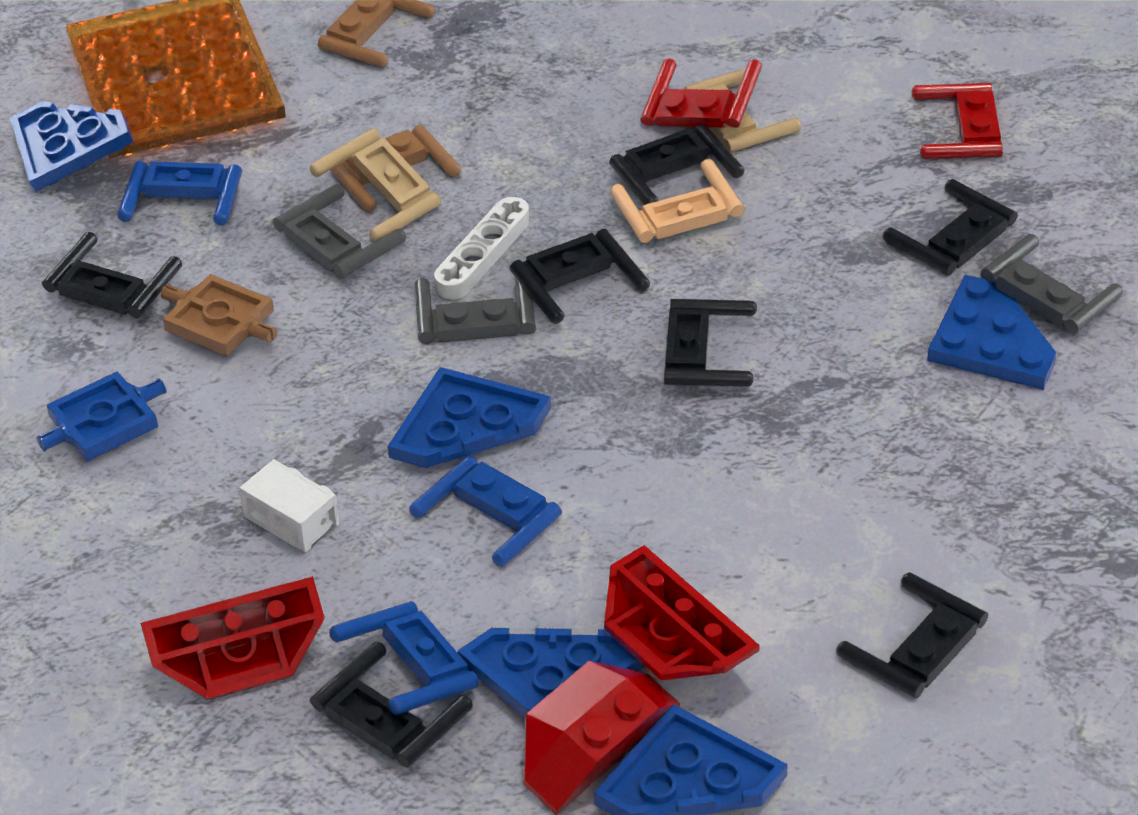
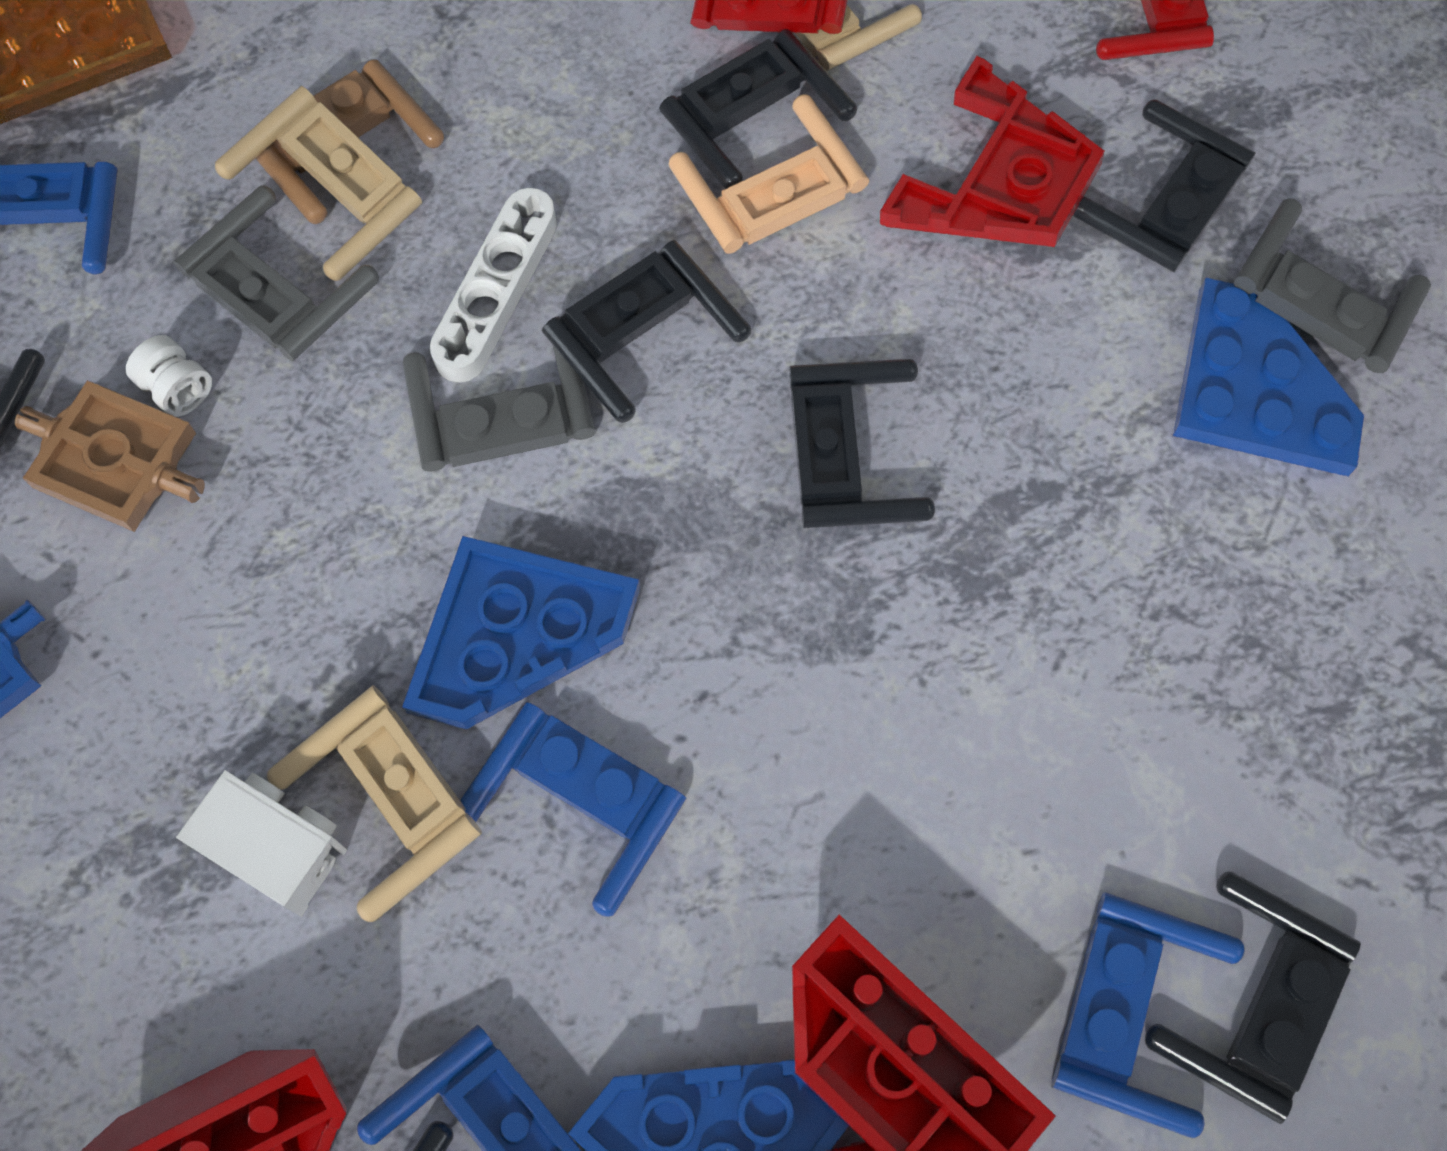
camera: 10 degrees left, 25 degrees up
(261, 275) = (162, 368): none -> white wheel
(379, 484) = (401, 785): none -> tan plate
(821, 628) = (1113, 1006): none -> blue plate
(845, 219) = (1021, 182): none -> red wing

